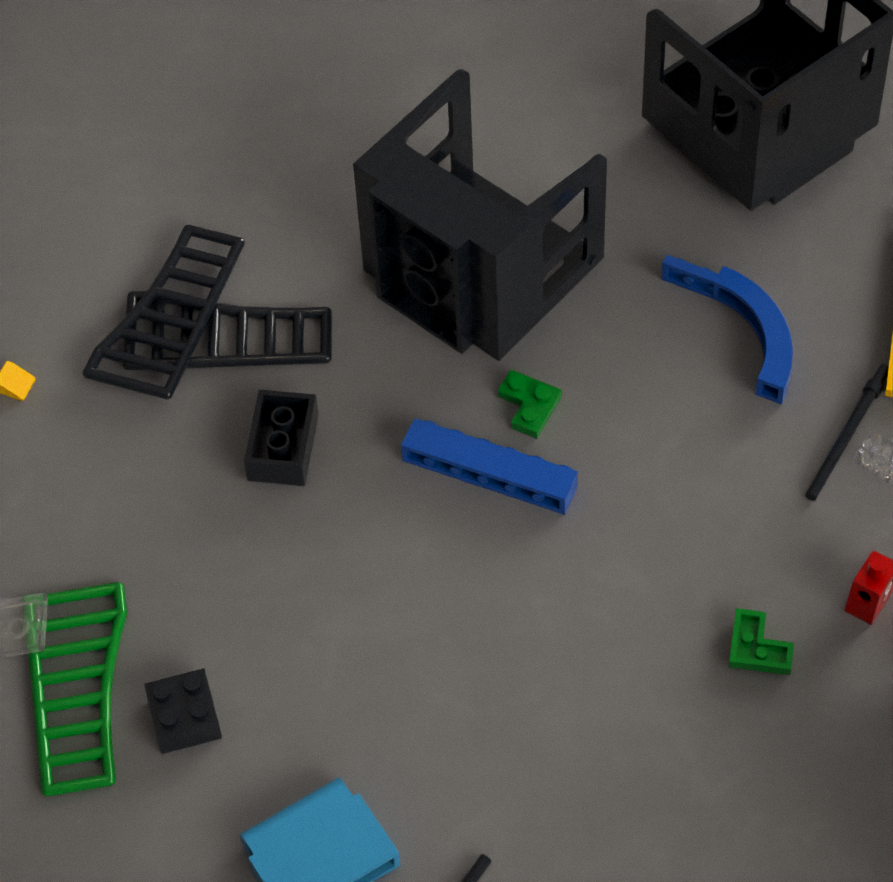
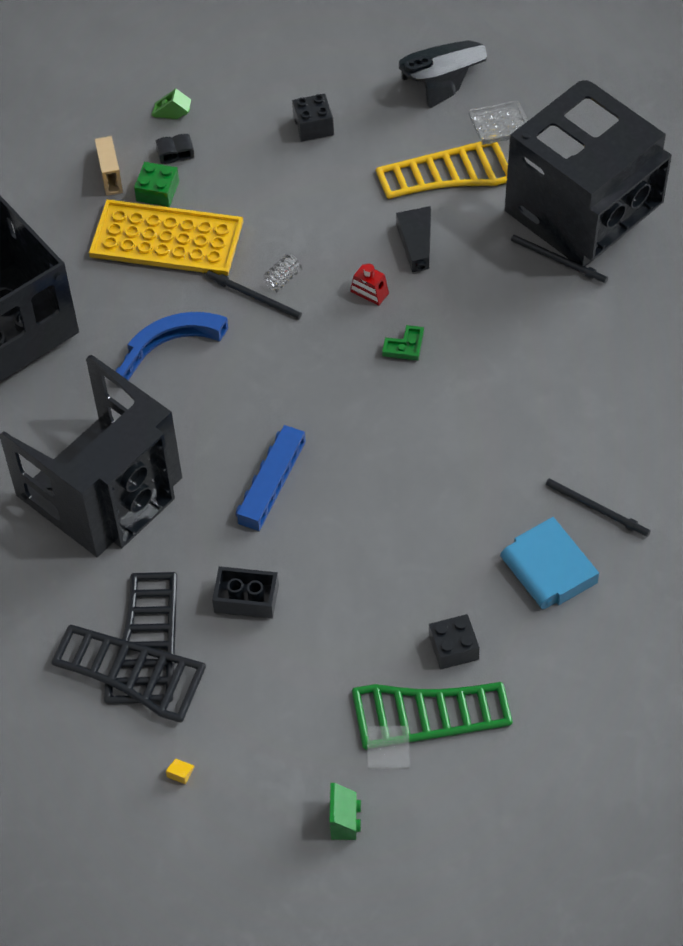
camera: 90 degrees left, 0 degrees up
(535, 400) = (217, 454): green plate -> none

